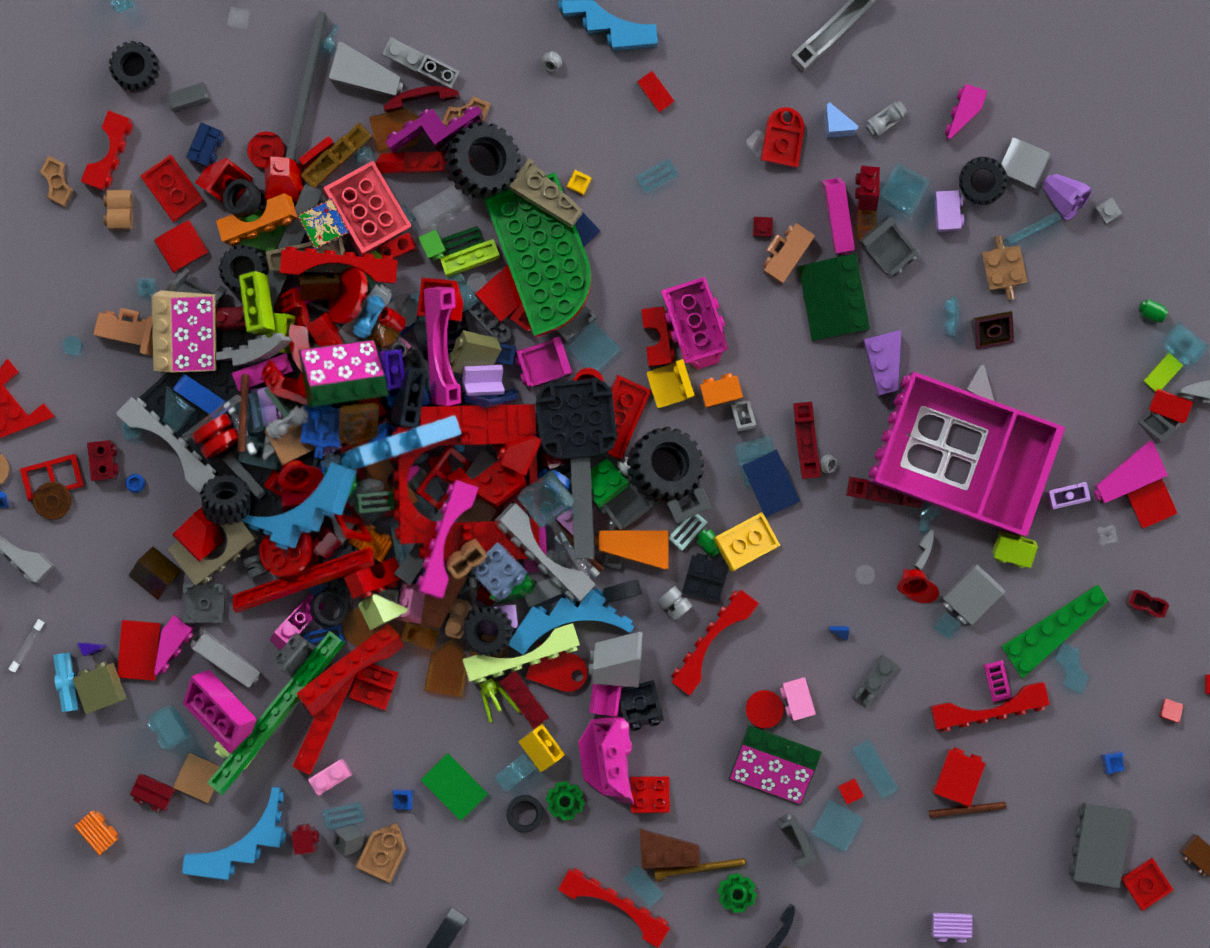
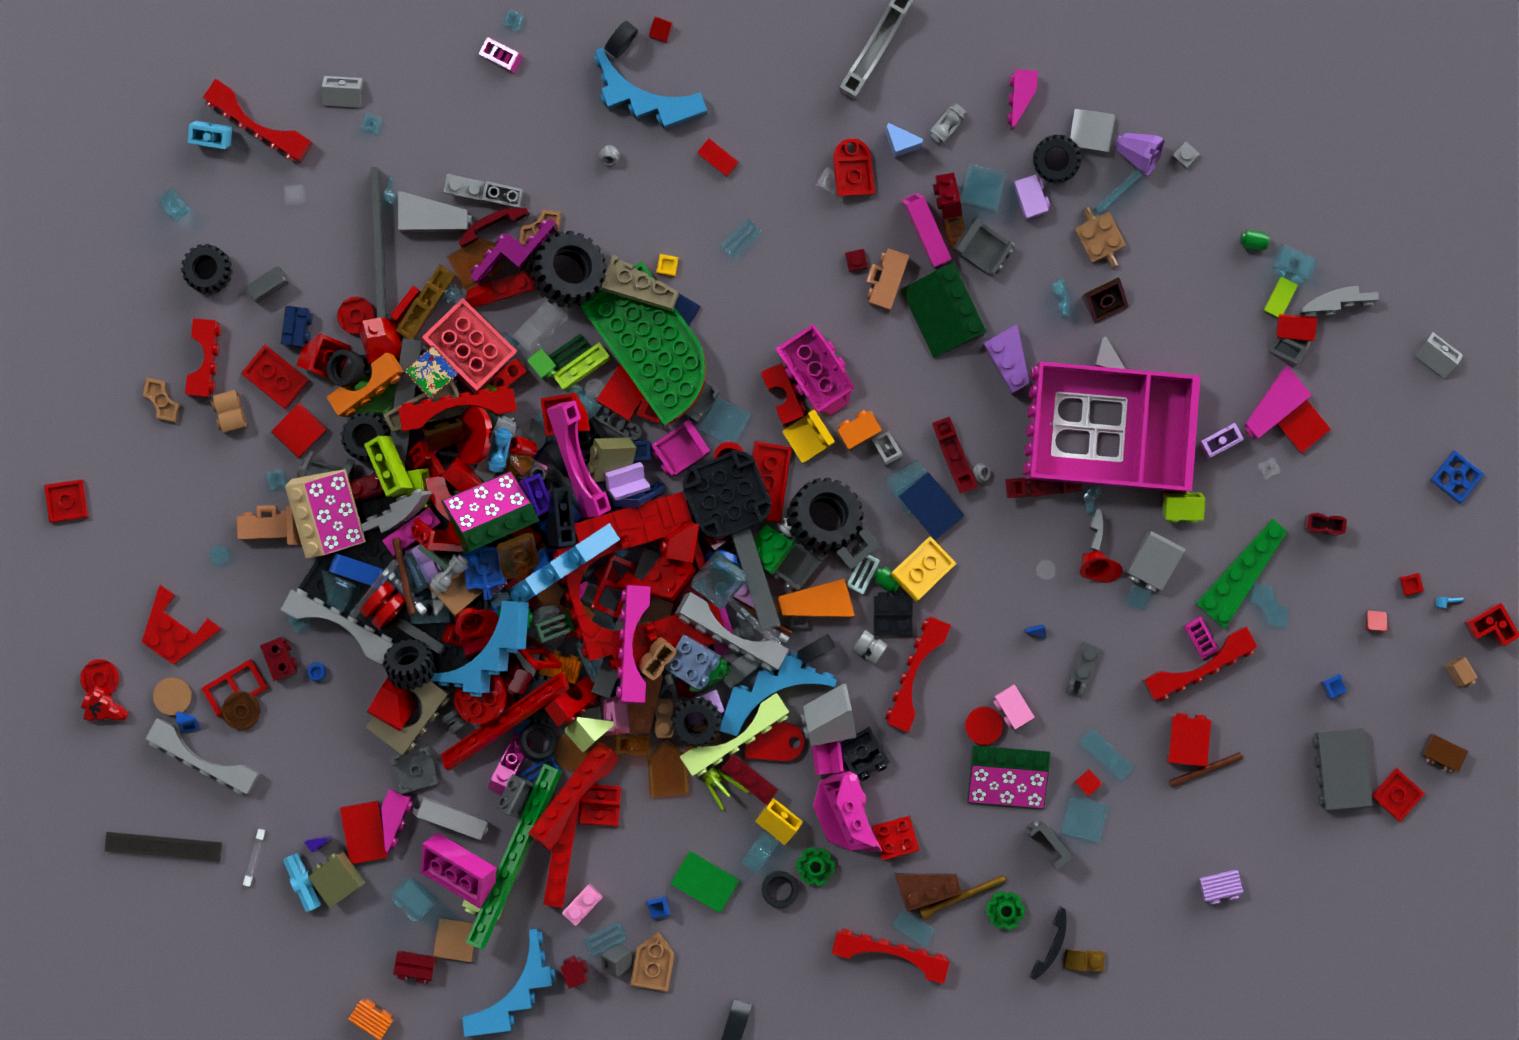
camera: 10 degrees left, 0 degrees up
(155, 572) = (359, 753): dark brown slope -> none

